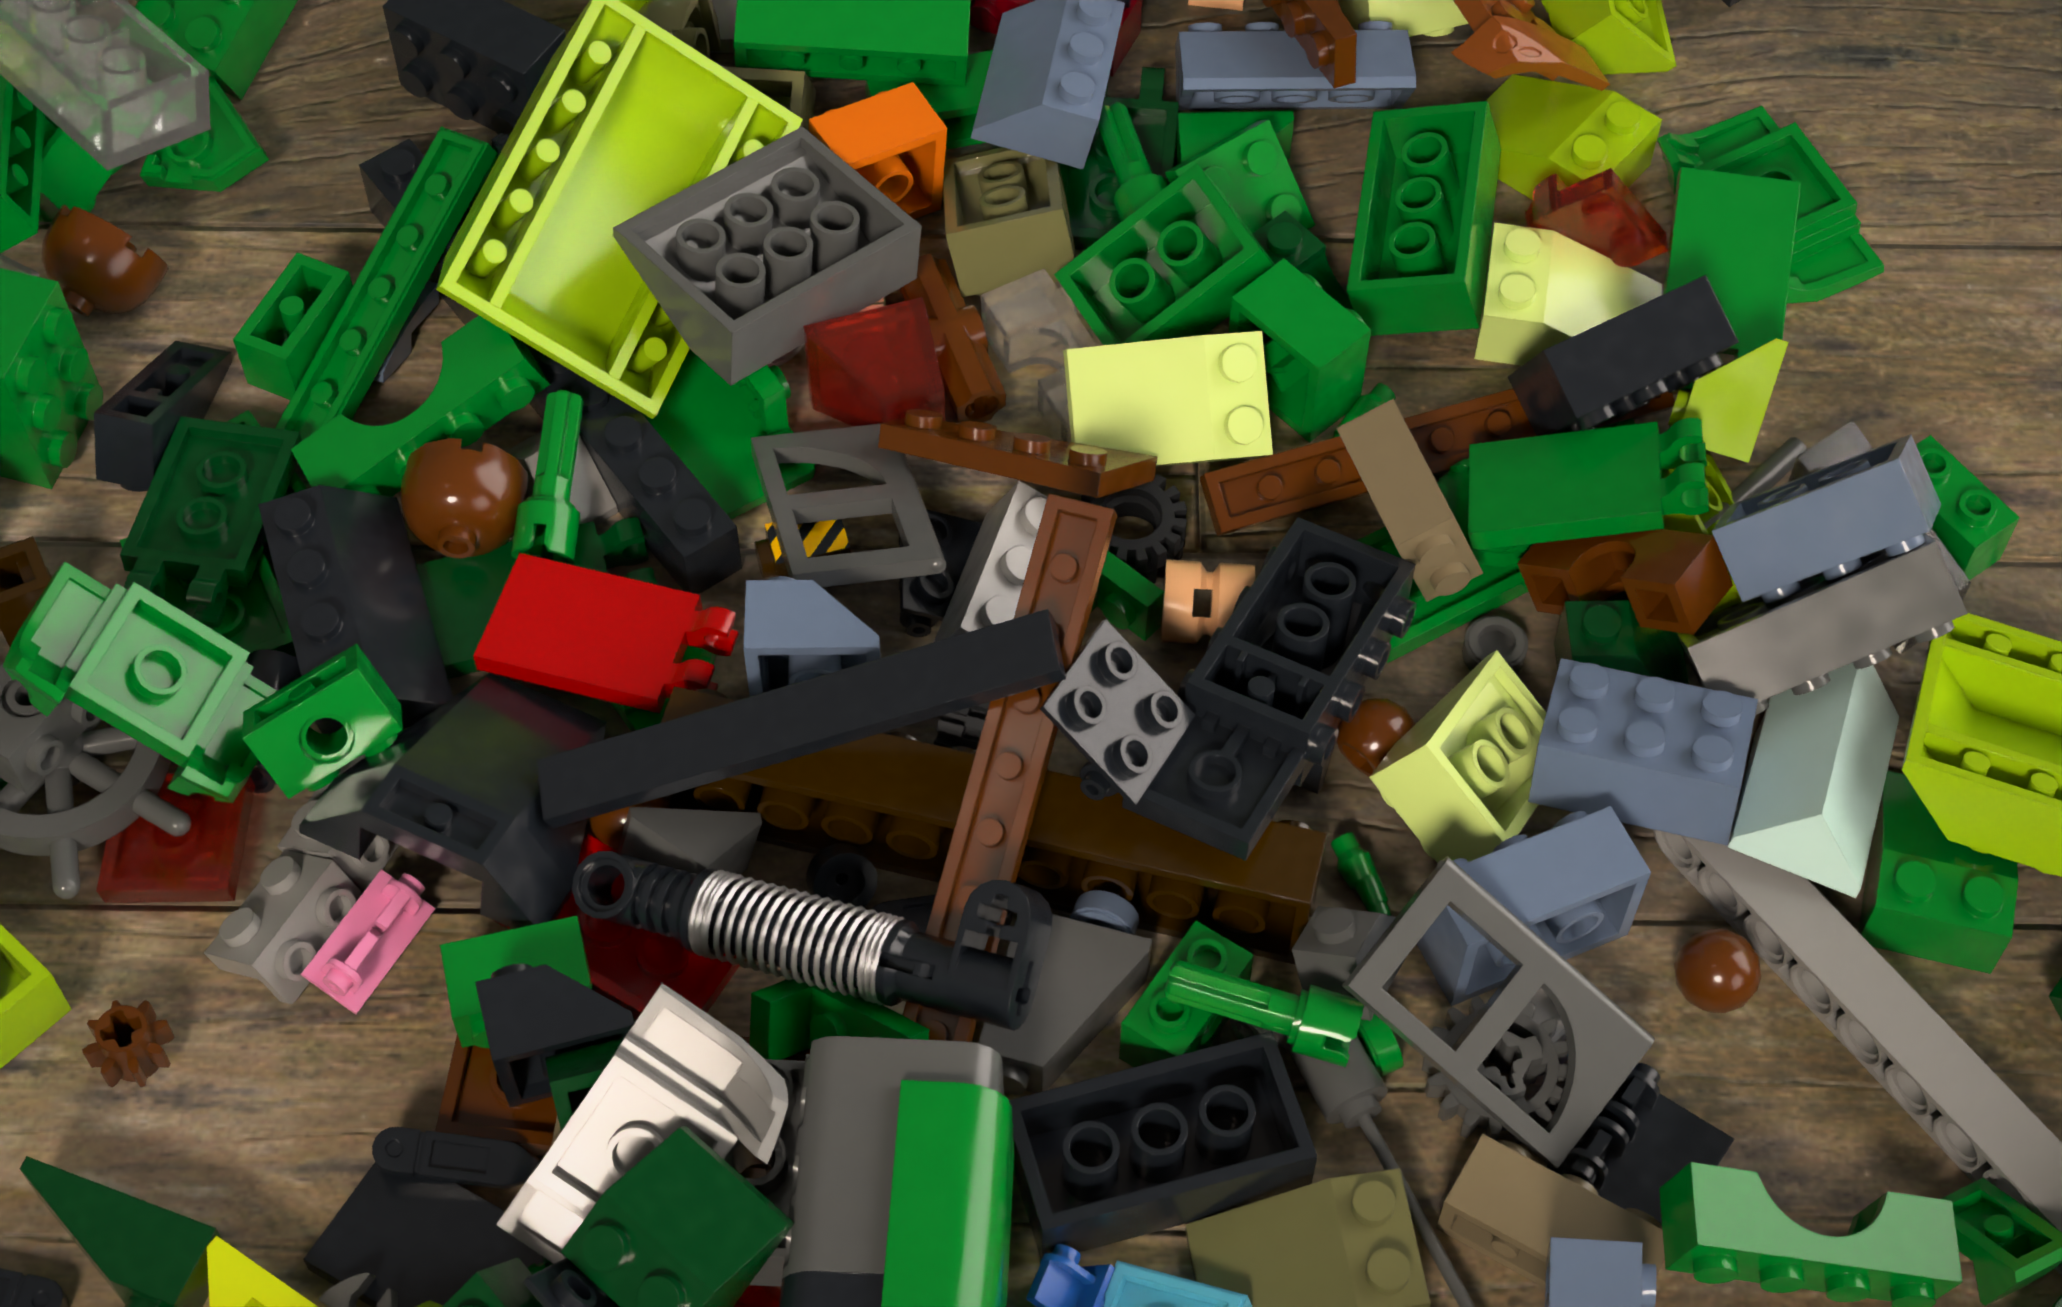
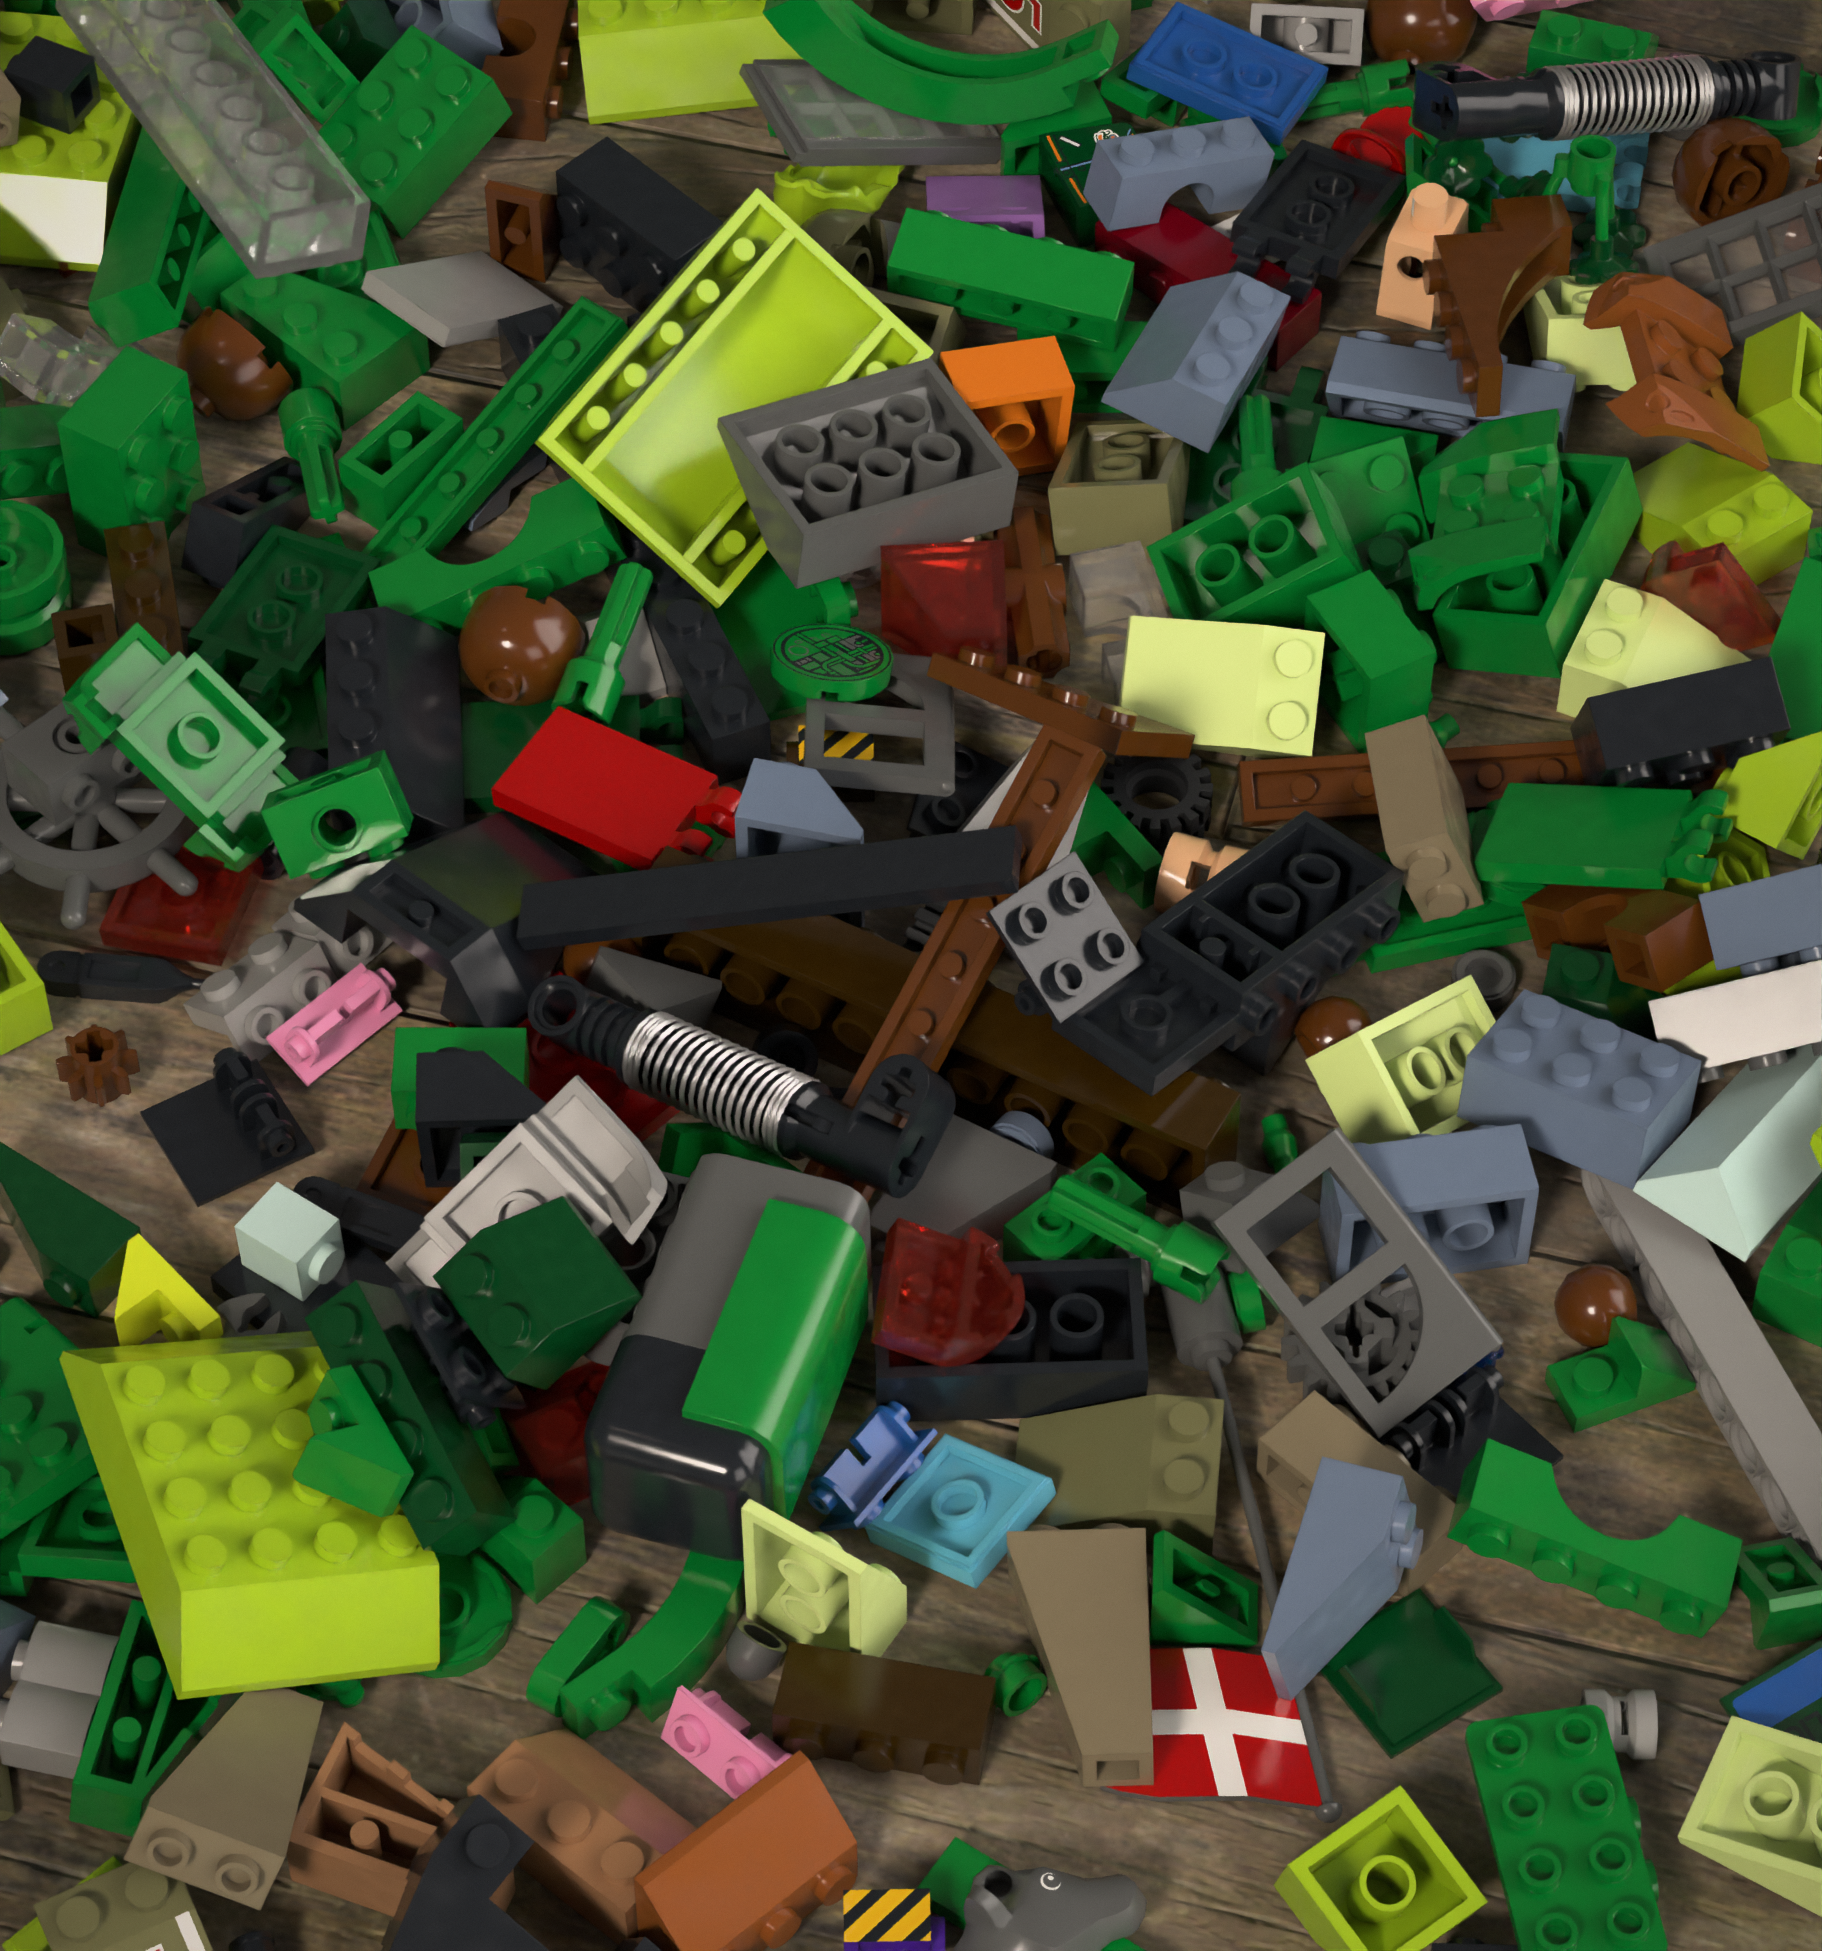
camera: 15 degrees right, 5 degrees down
(64, 511) = (144, 582): none -> dark brown brick
(122, 937) = (113, 977): none -> black piece
(200, 219) = (330, 340): none -> green wedge
(200, 318) = (313, 437): none -> green piece
(282, 1085) = (227, 1129): none -> black hinge
(309, 148) = (454, 296): none -> light grey tile
(360, 69) = (523, 228): none -> reddish brown slope
(383, 1207) = (290, 1242): none -> light aqua brick
(781, 451) = (831, 660): none -> green tile
(1092, 1124) = (944, 1295): none -> clear red slope
(1375, 173) = (1491, 503): none -> green piece
(1757, 1040) = (1622, 1377): none -> green slope

